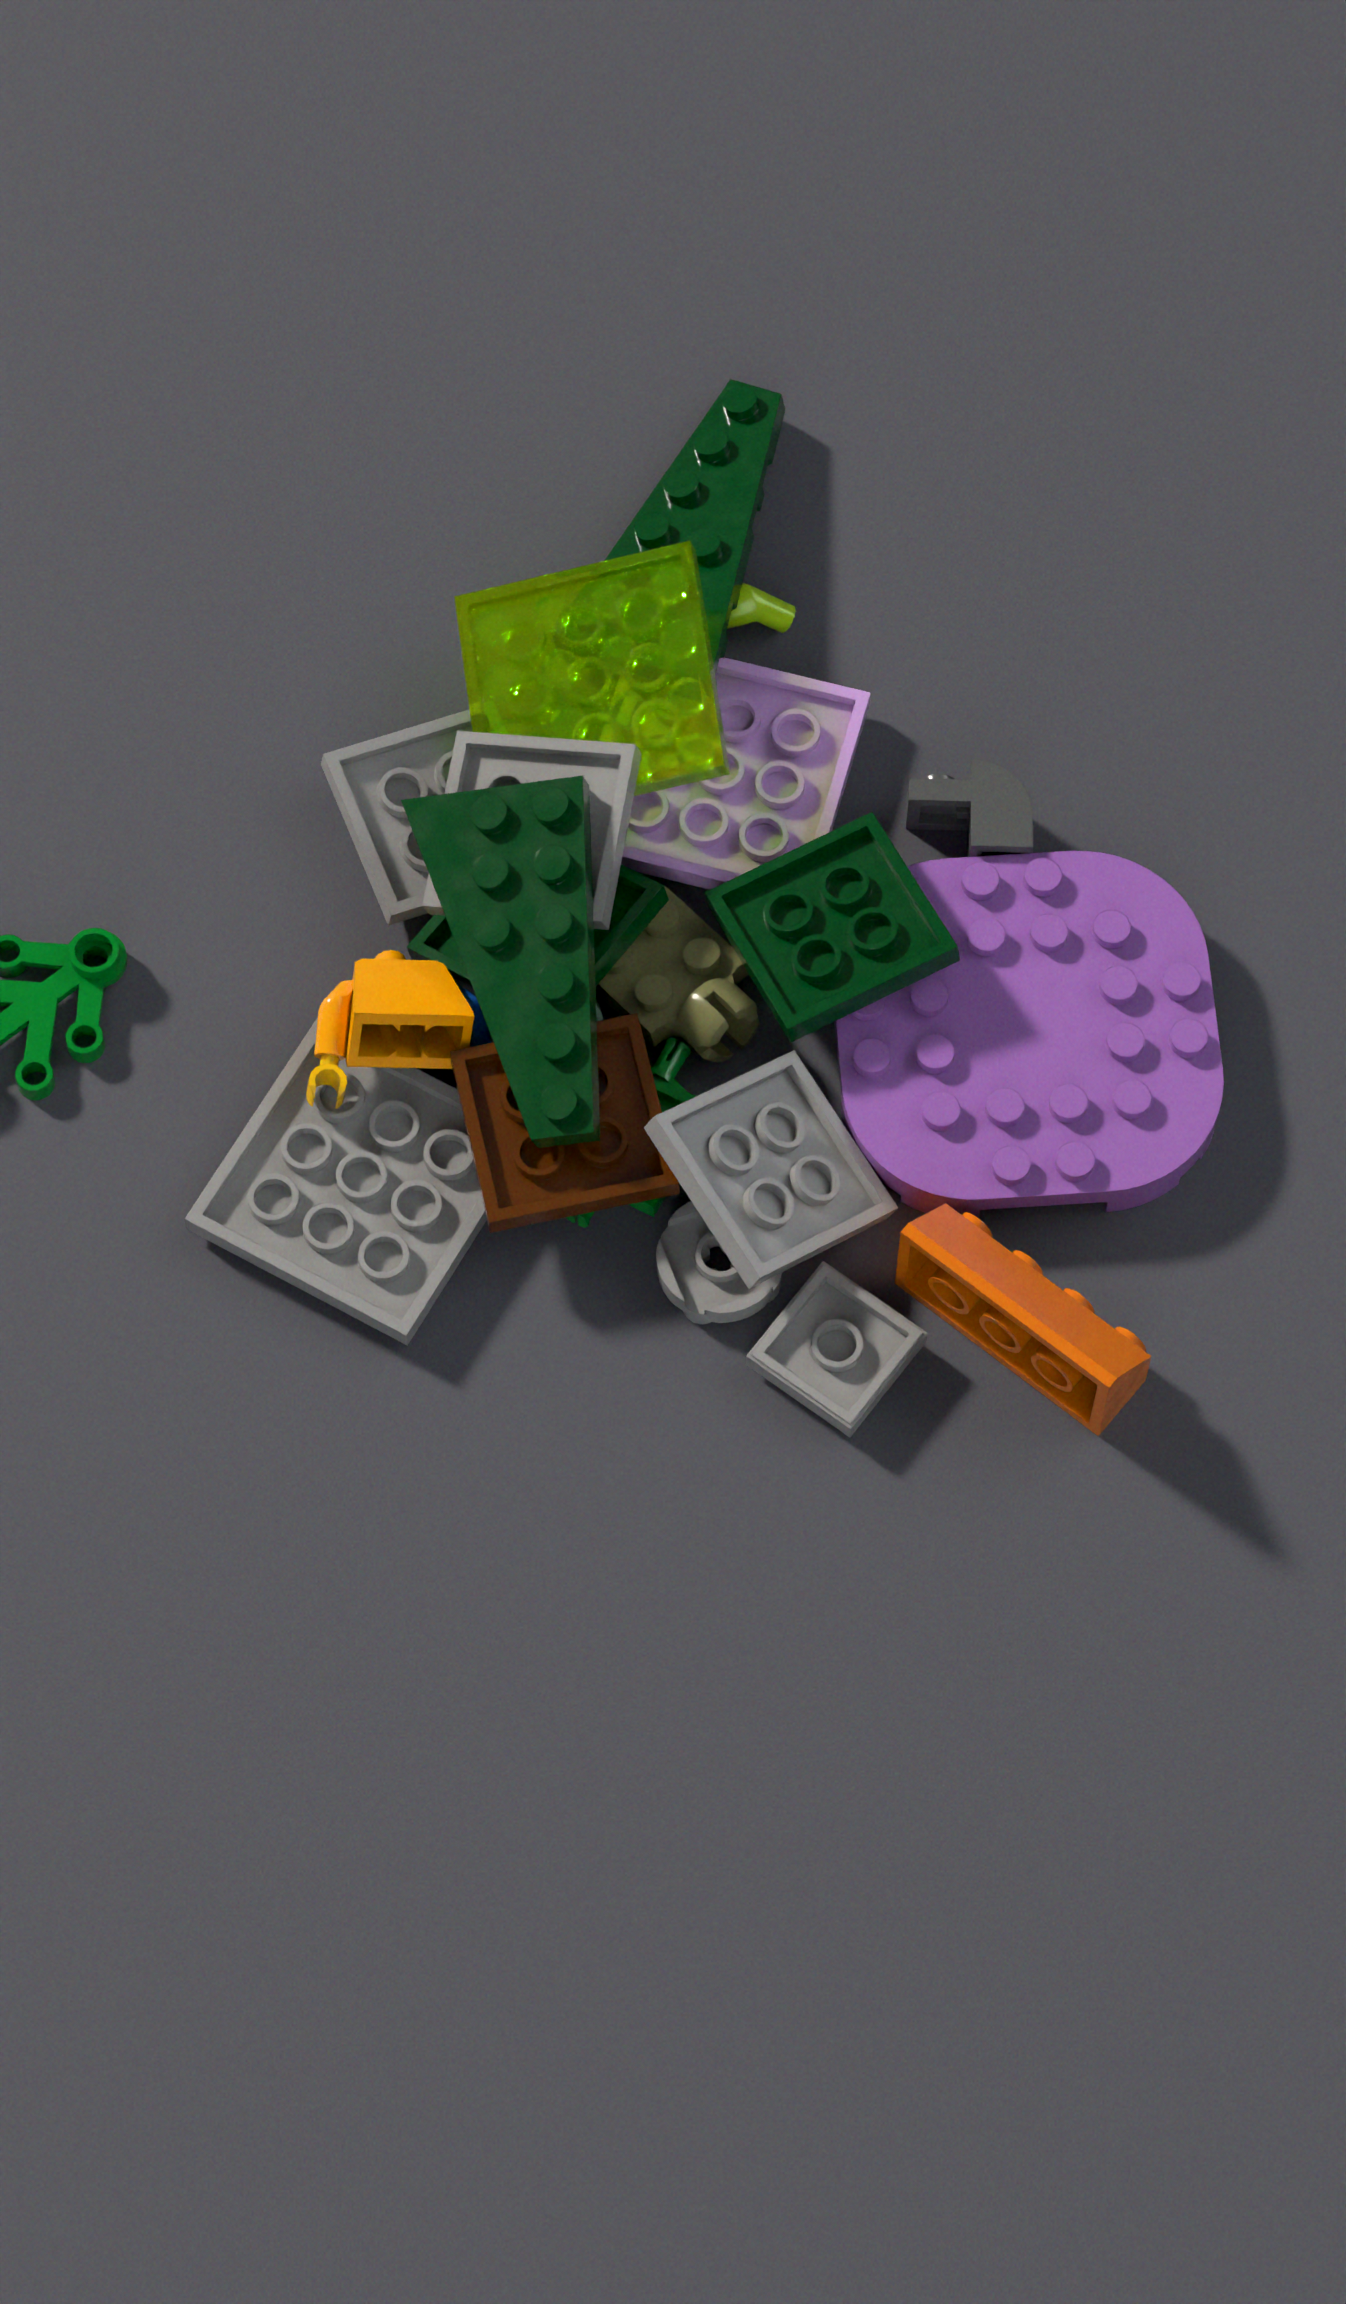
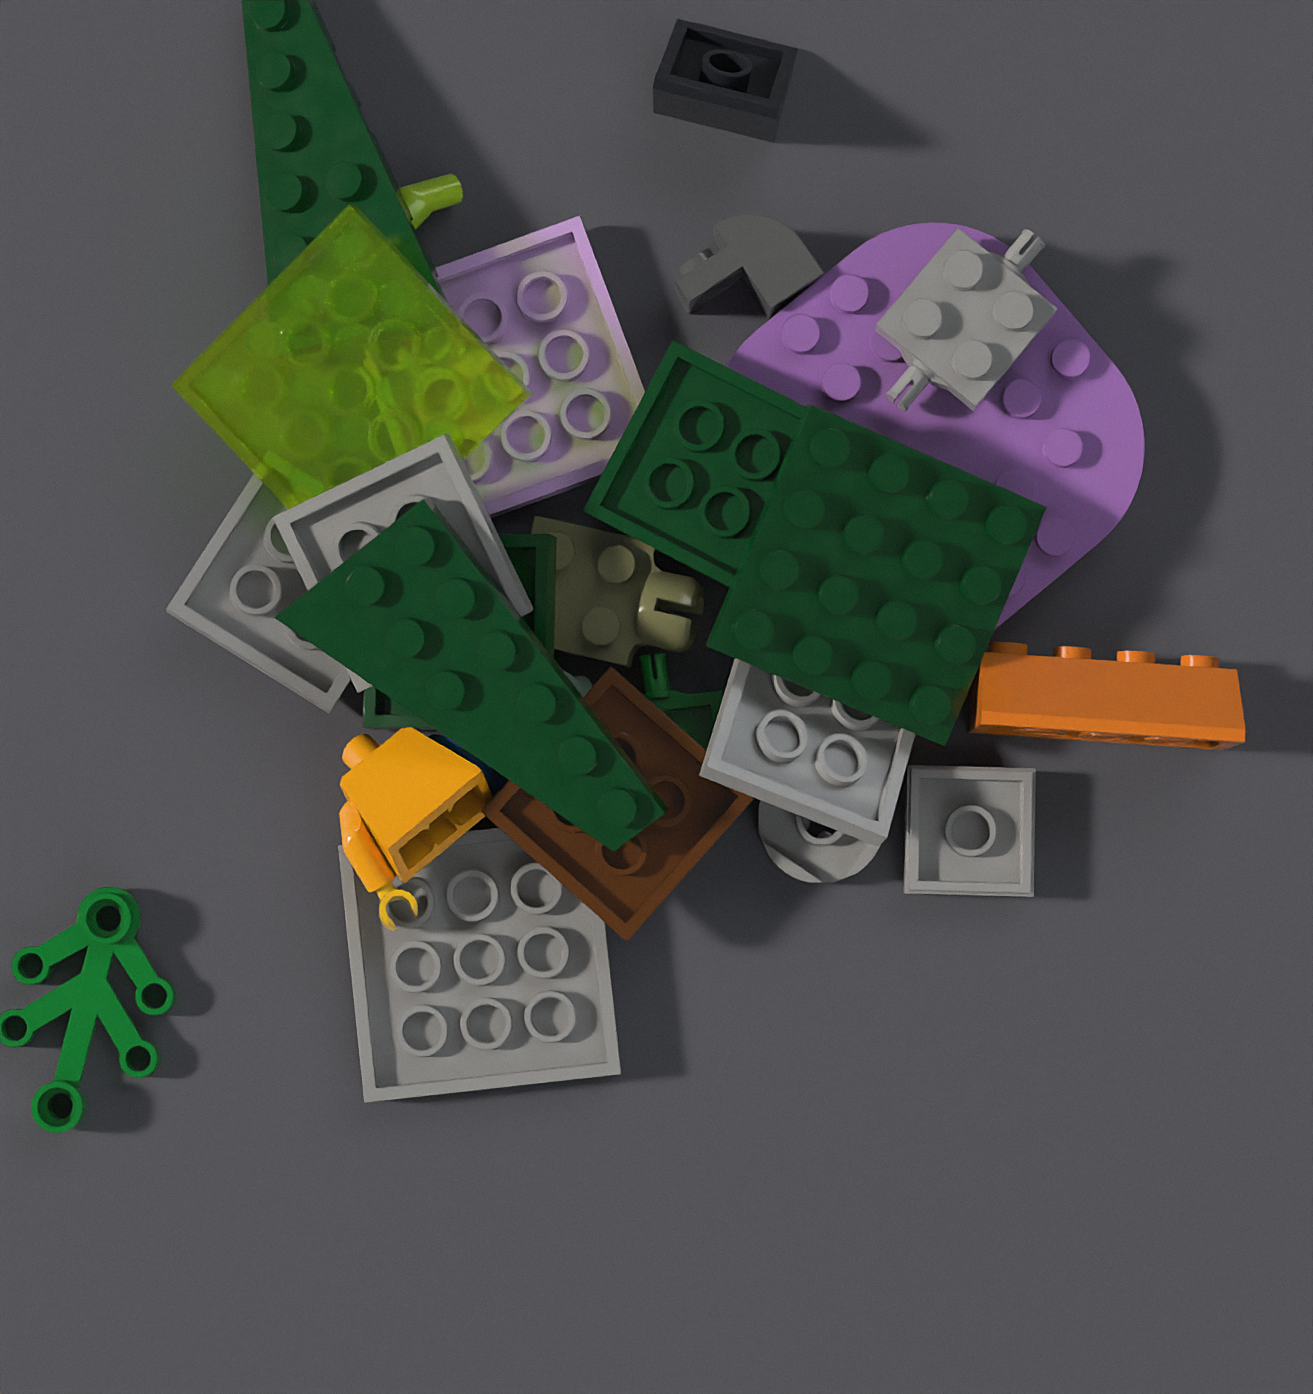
camera: 30 degrees left, 20 degrees up
(901, 1079) = (875, 575): none -> dark green plate
(1059, 675) = (723, 80): none -> black slope
(1120, 947) = (965, 319): none -> light grey plate

